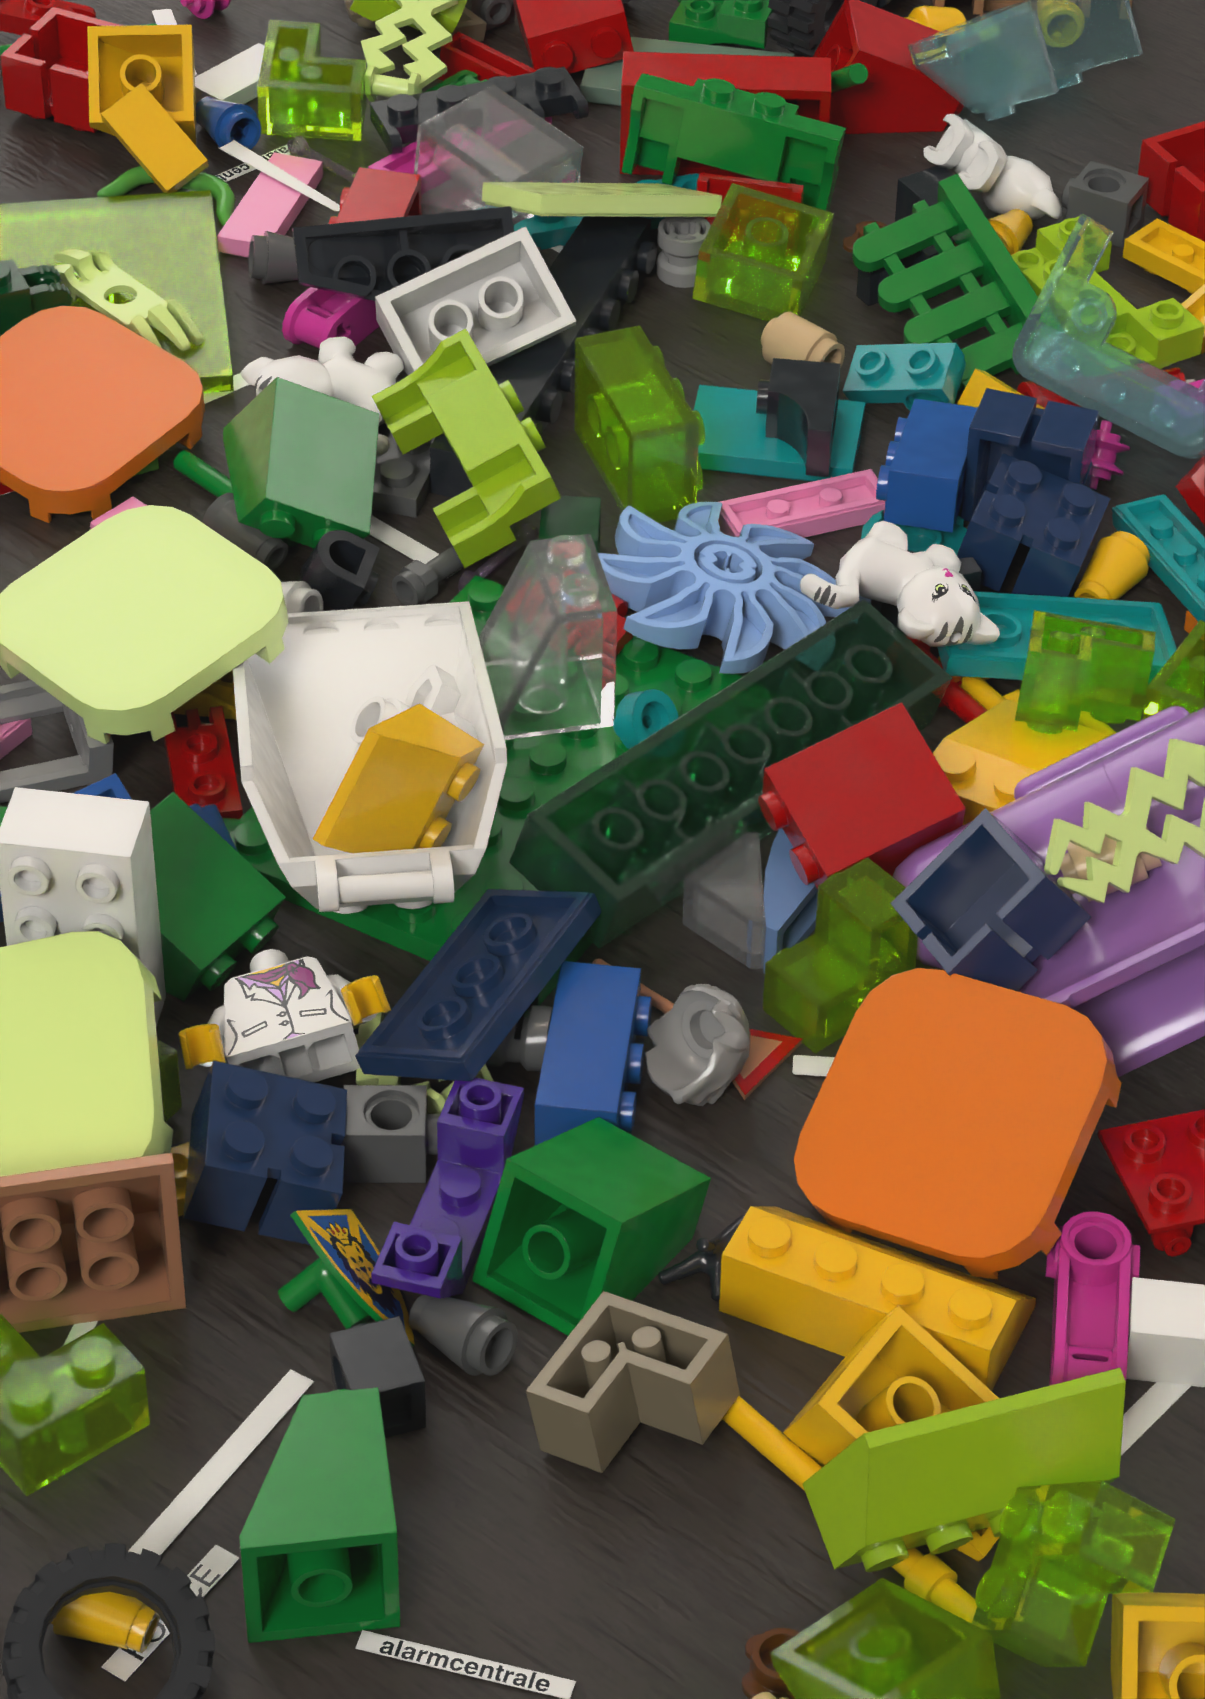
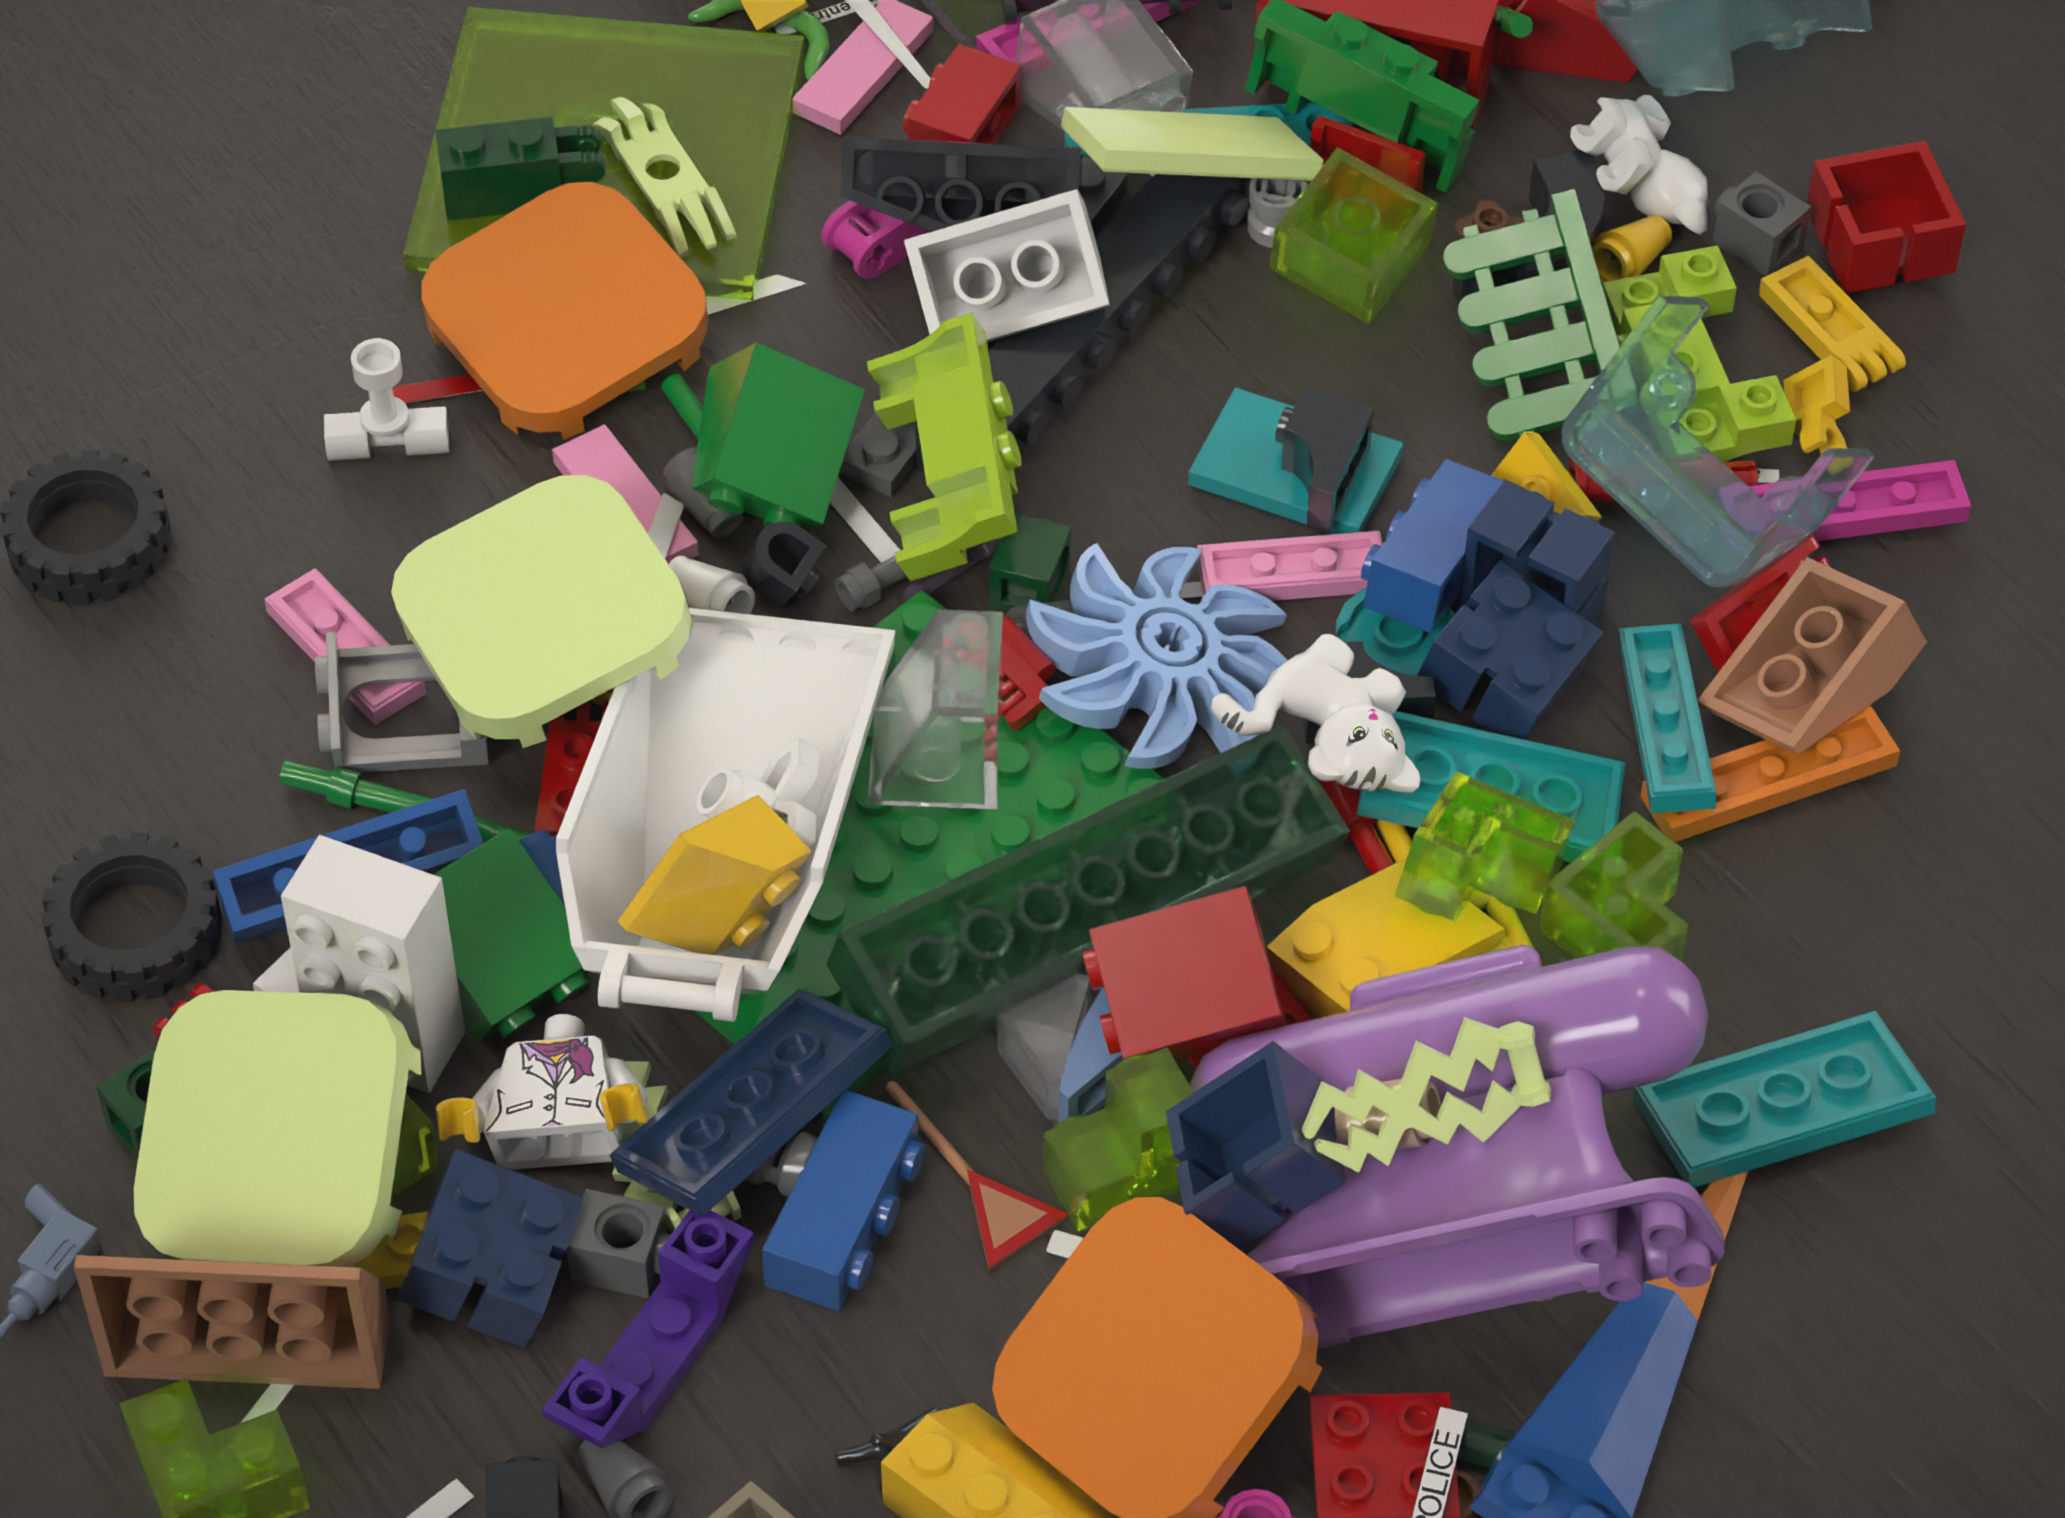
camera: 15 degrees right, 10 degrees up
(272, 258) = (835, 127): dark grey cone -> none
(333, 374) = (814, 323): white animal -> none
(342, 1271) = (523, 1375): shield -> none
(585, 1220) = (777, 1387): green slope -> none
(637, 423) = (1140, 442): clear neon green brick -> none
(642, 715) = (1020, 817): teal tile -> none
(698, 1045) = (951, 1211): light grey hair -> none
(799, 339) = (1358, 361): tan brick -> none
(905, 372) = (1460, 420): teal plate -> none
(1105, 454) = (1628, 560): dark pink wheel -> none
(1115, 567) = (1586, 712): yellow cone -> none

